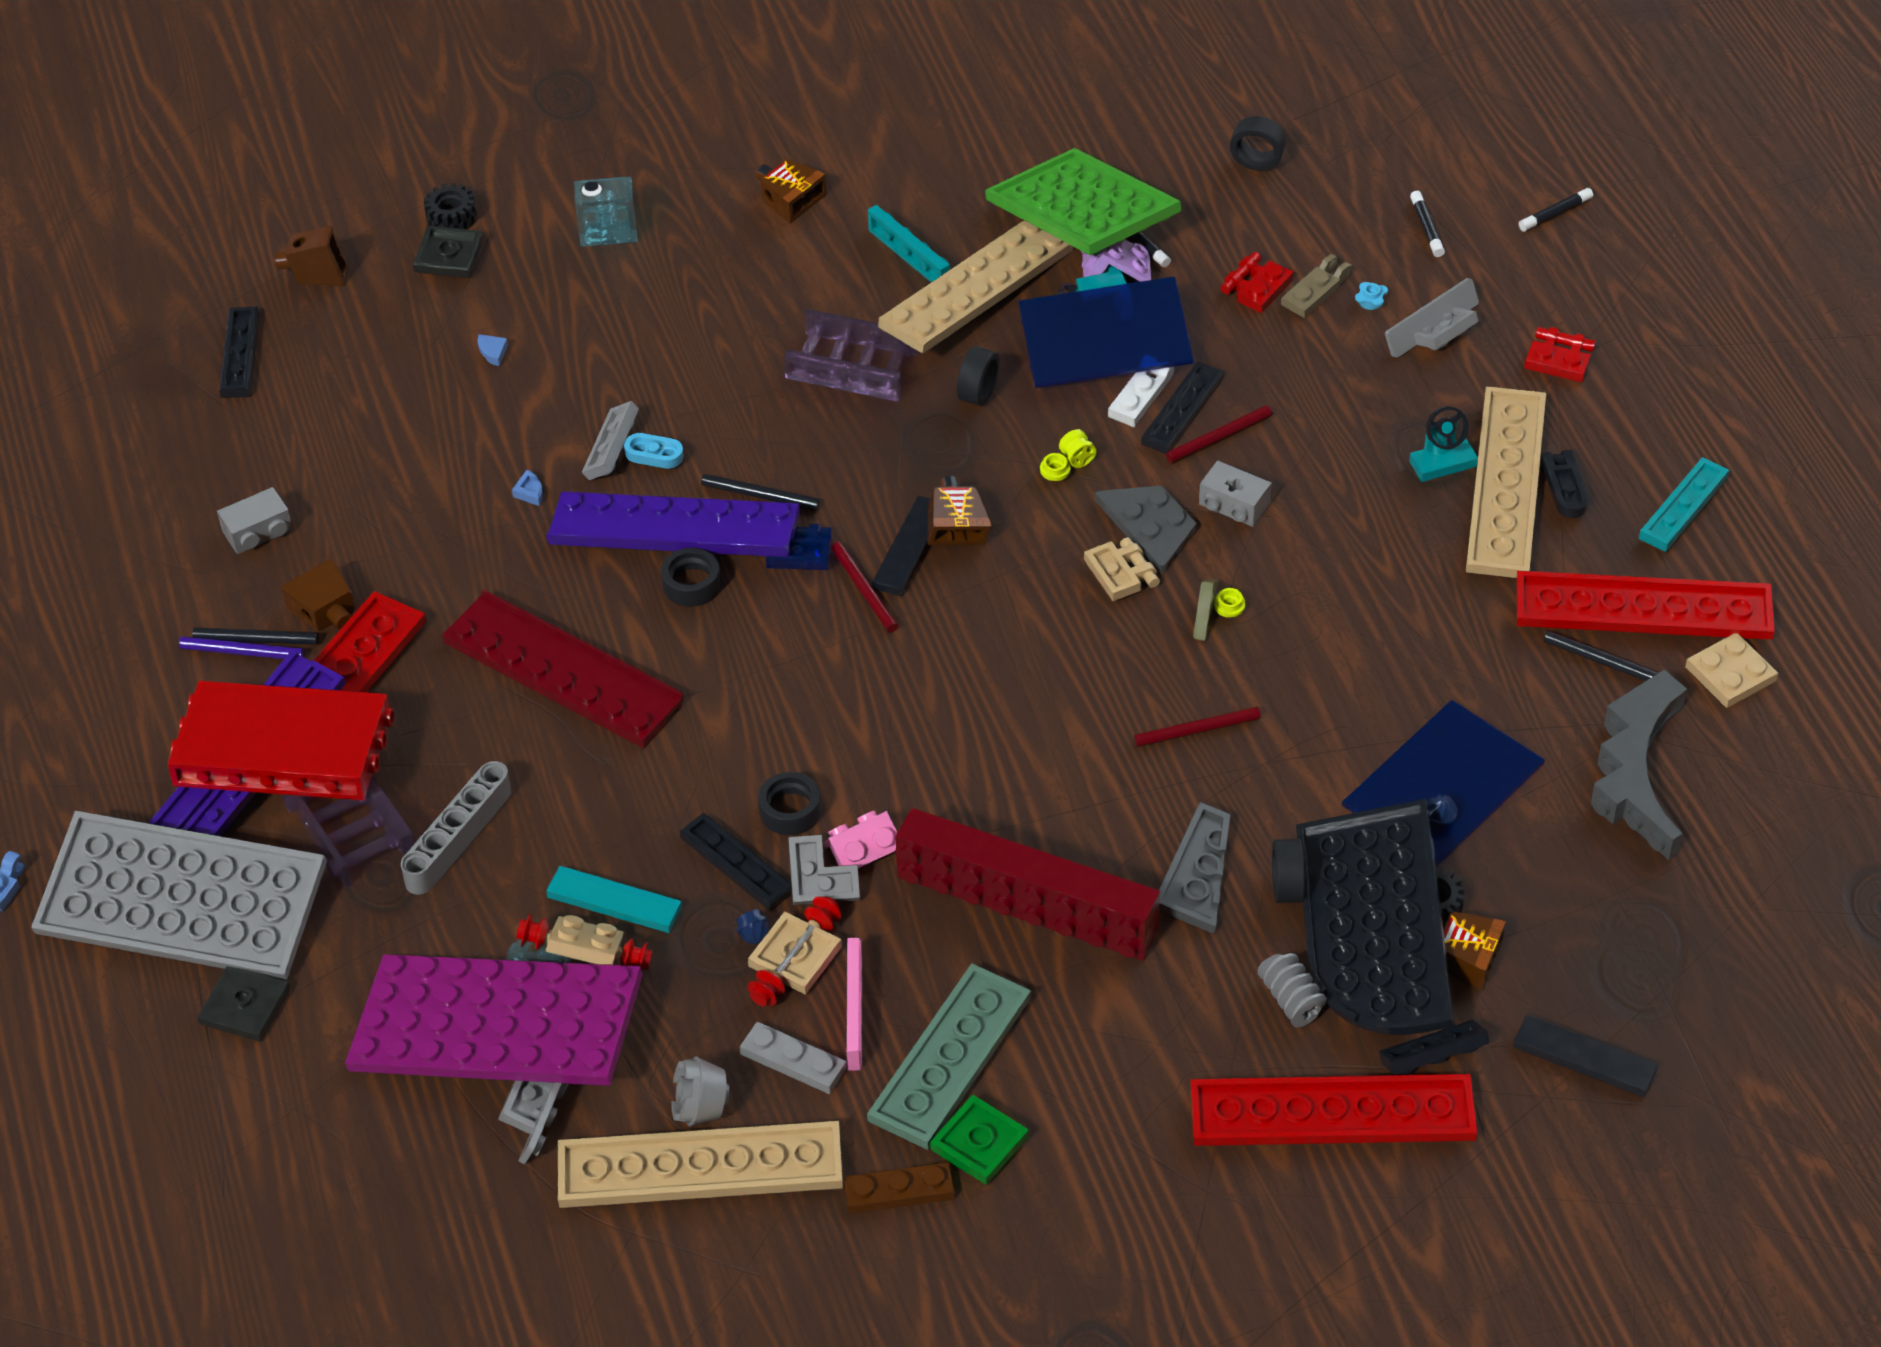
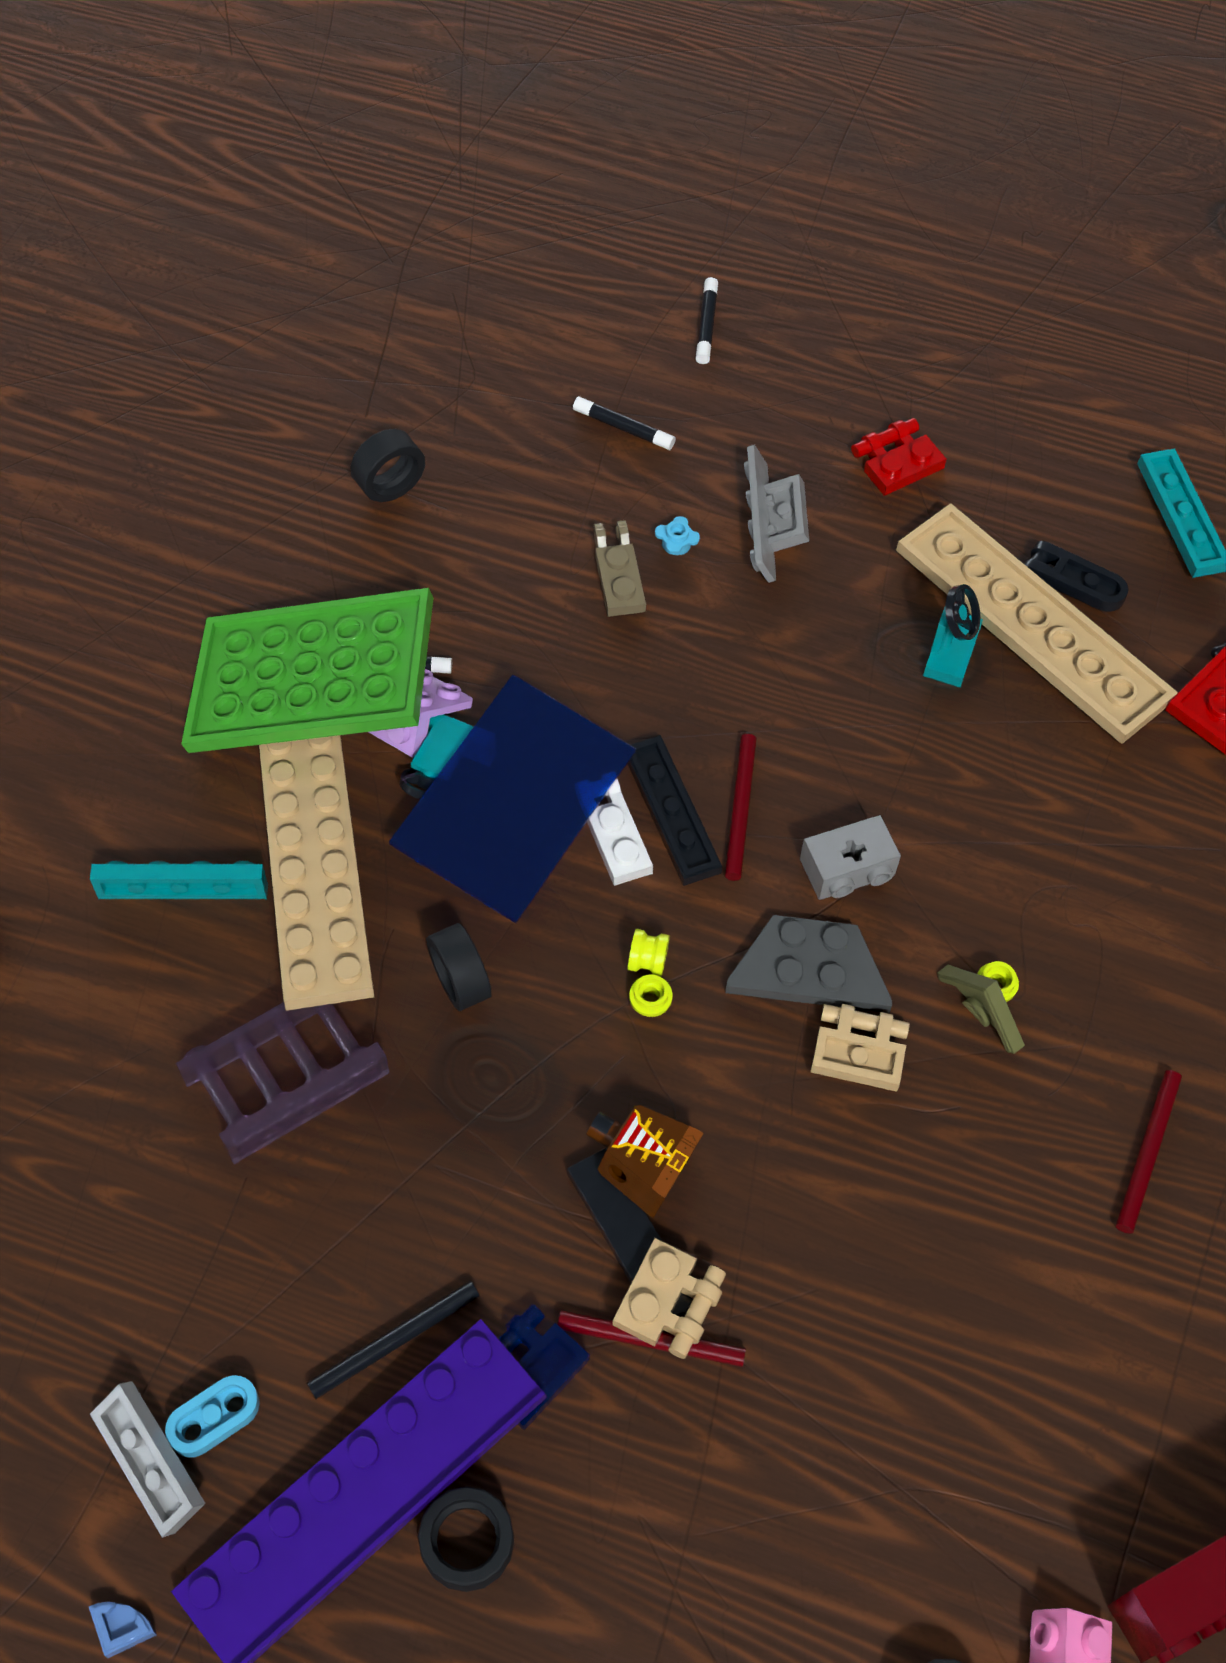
camera: 55 degrees left, 10 degrees up
(888, 572) = (655, 1292): none -> tan plate
(1264, 286) = (572, 609): red plate -> none

